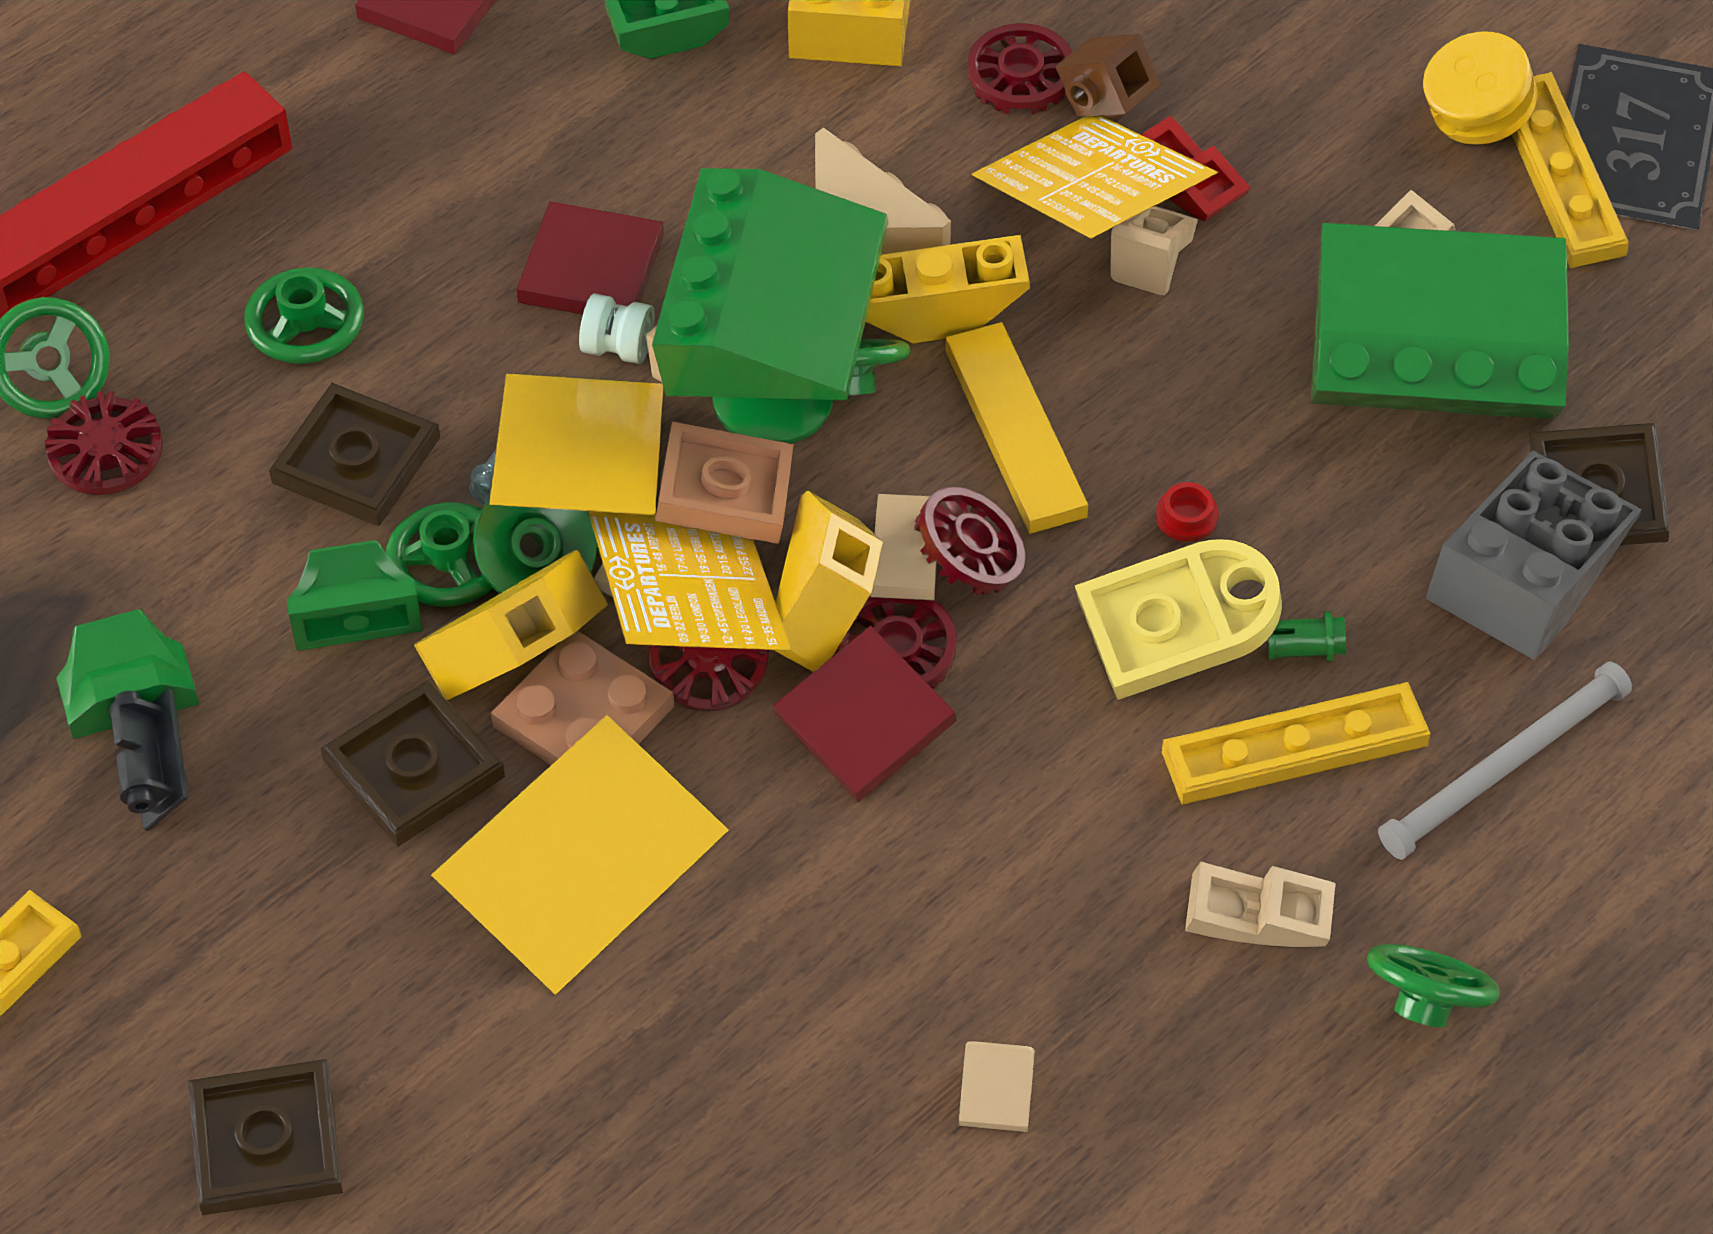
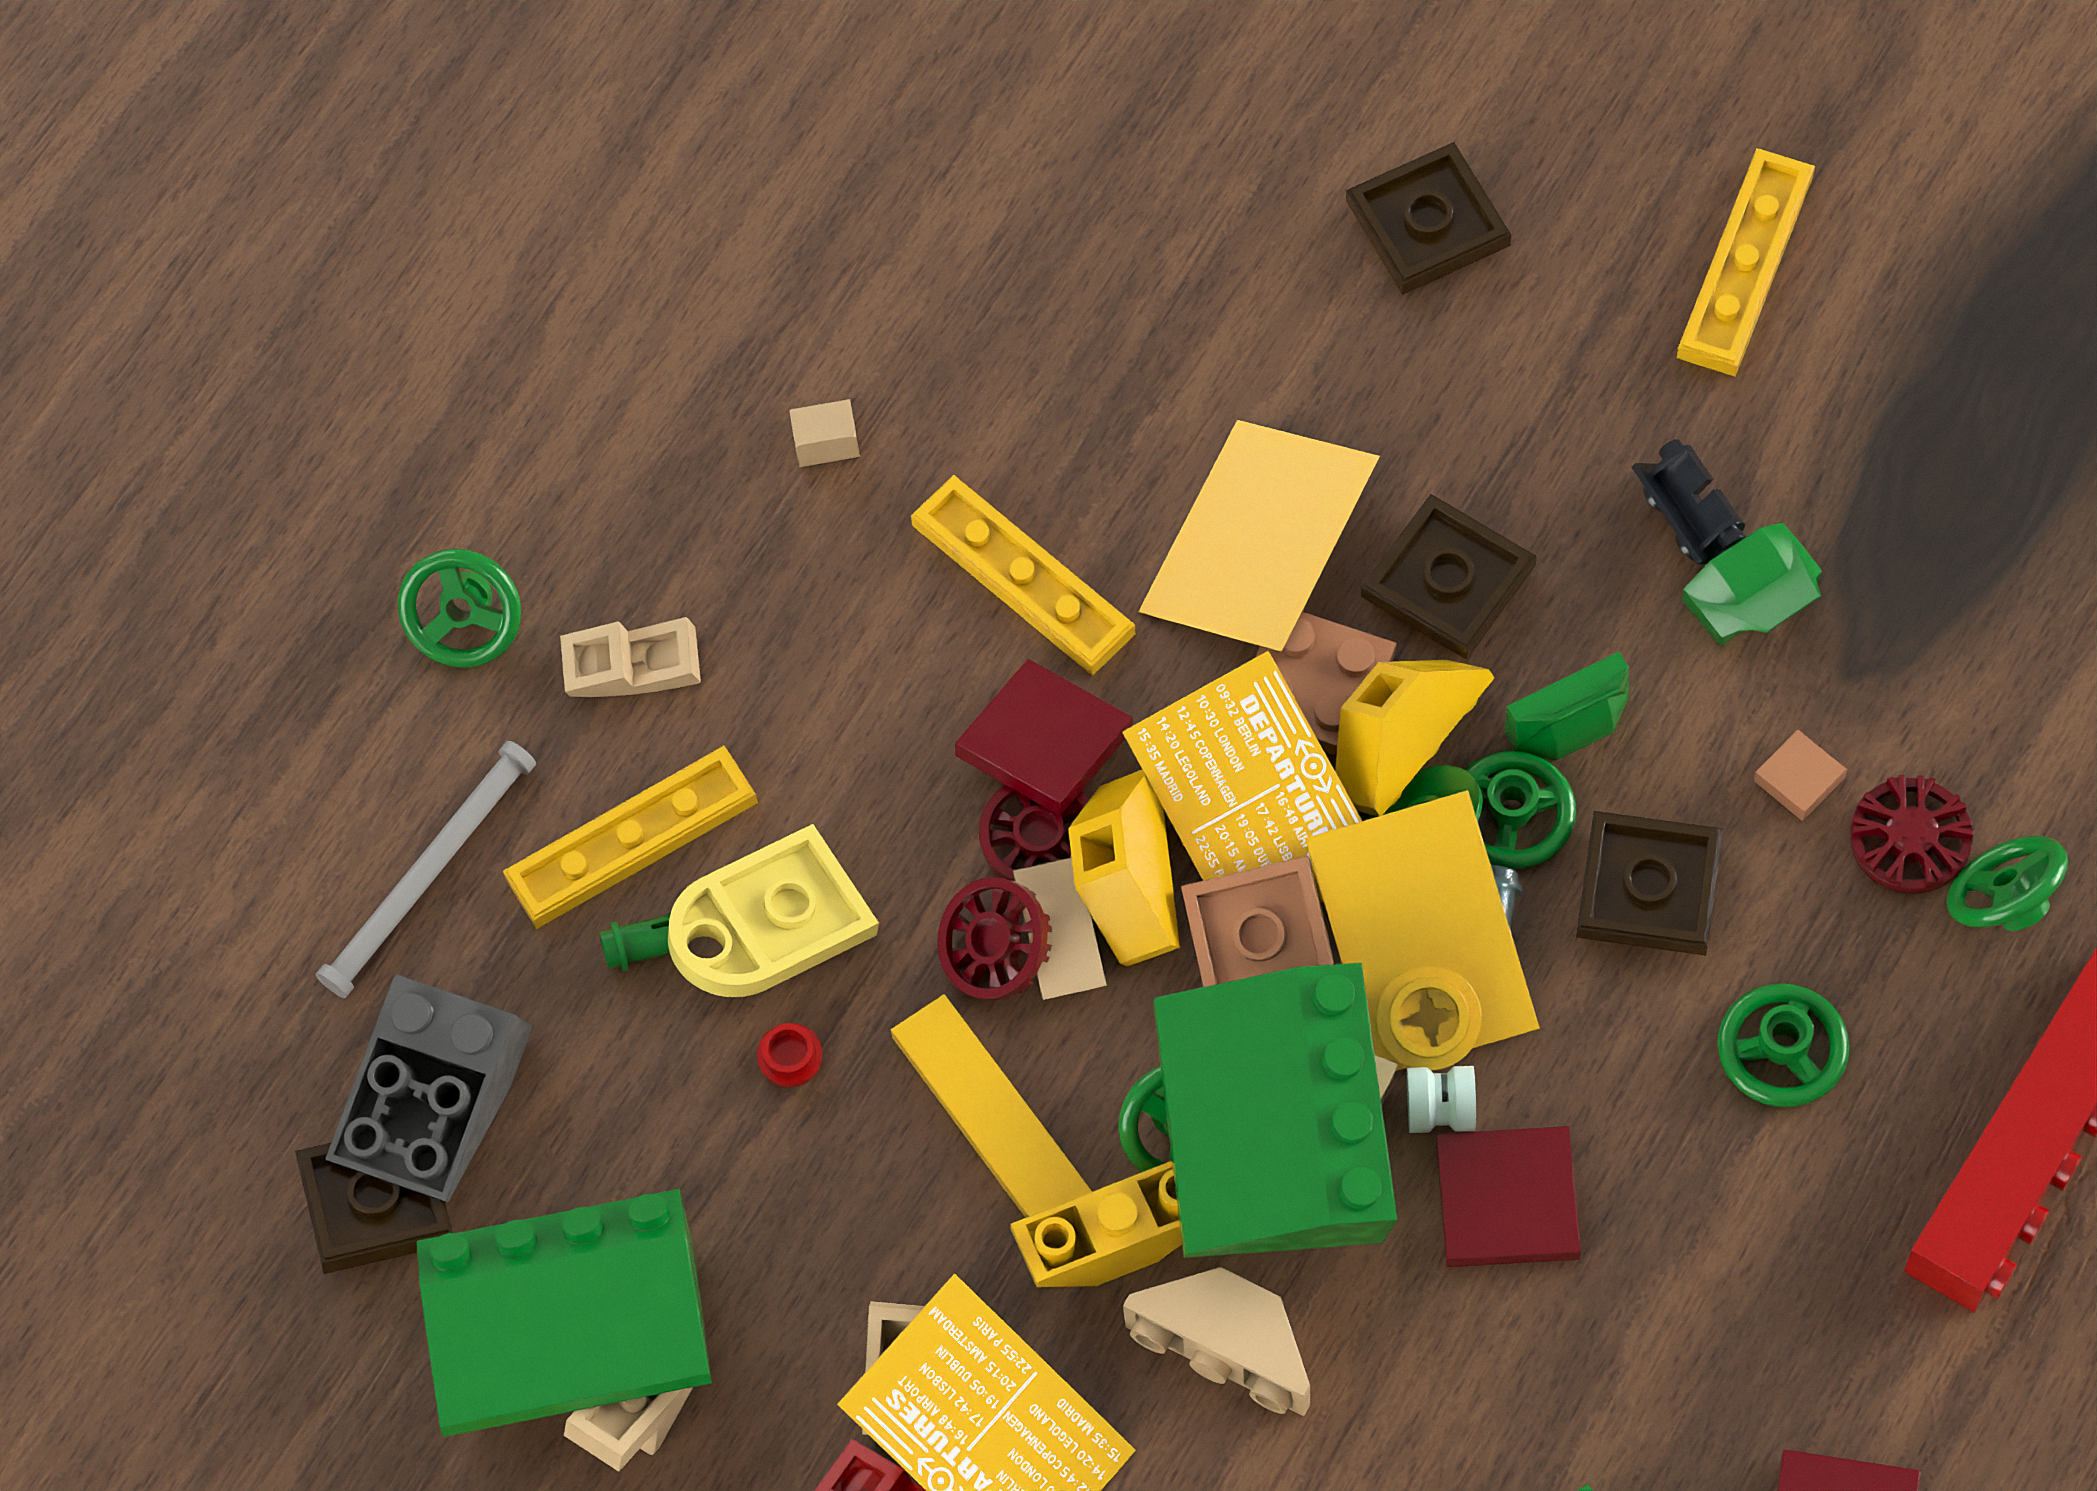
camera: 170 degrees right, 10 degrees up
(174, 513) = (1800, 775): none -> nougat tile
(580, 380) = (1446, 992): none -> yellow gear
(834, 891) = (1023, 575): none -> yellow tile

